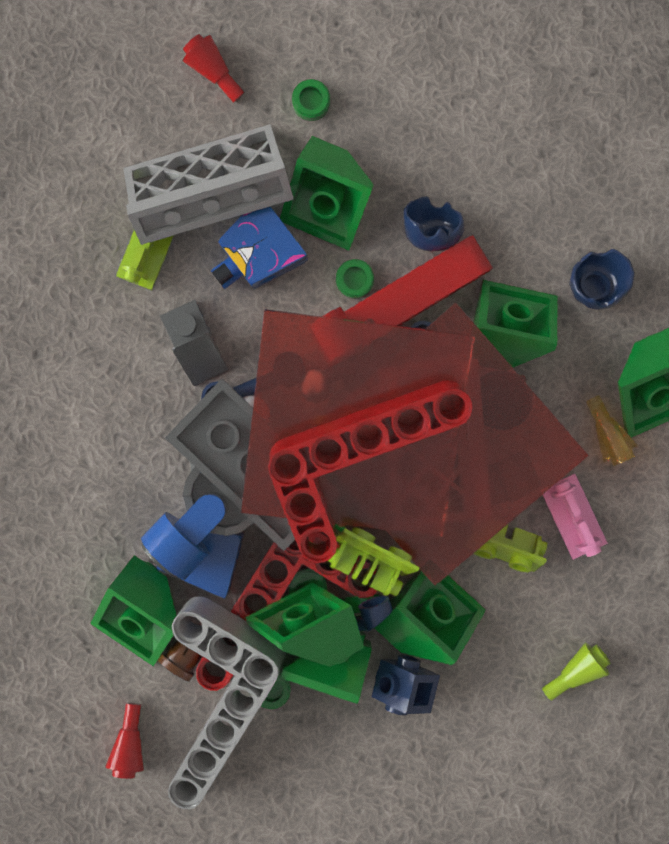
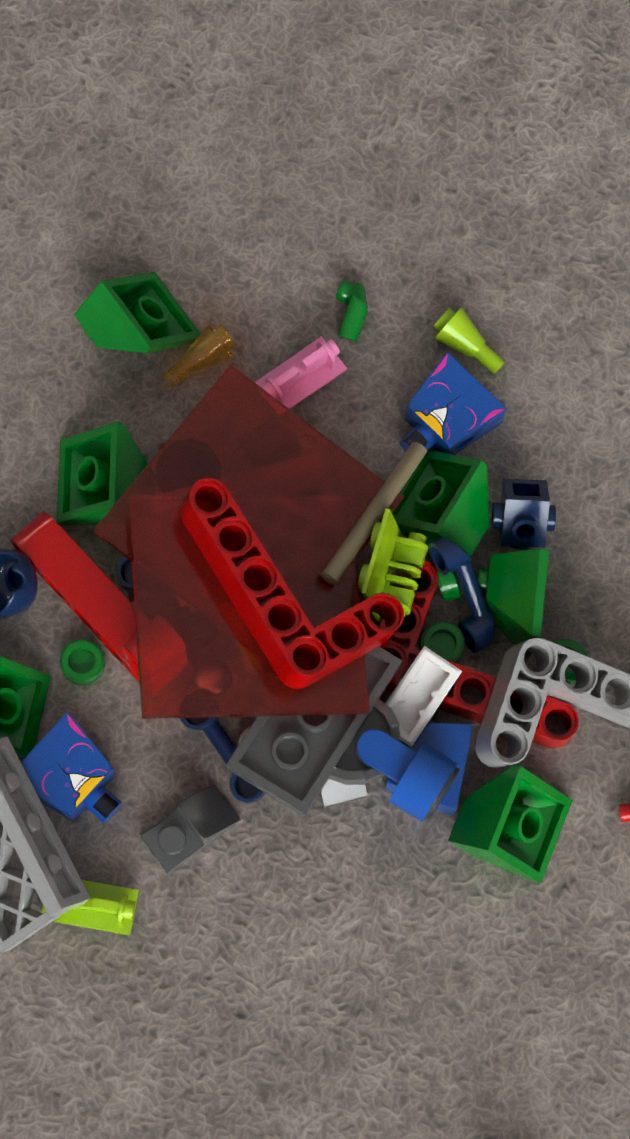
camera: 110 degrees left, 15 degrees down
(180, 661) = (550, 763): reddish brown bush -> none
(257, 560) = (421, 693): none -> white plate
(310, 626) = (475, 617): green slope -> none
(421, 555) = (373, 513): none -> dark tan bar
(513, 642) = (451, 410): none -> blue torso
(522, 551) = (350, 422): lime hinge -> none
(602, 279) = (34, 394): dark blue hair -> none
(625, 580) = (356, 310): none -> green arm

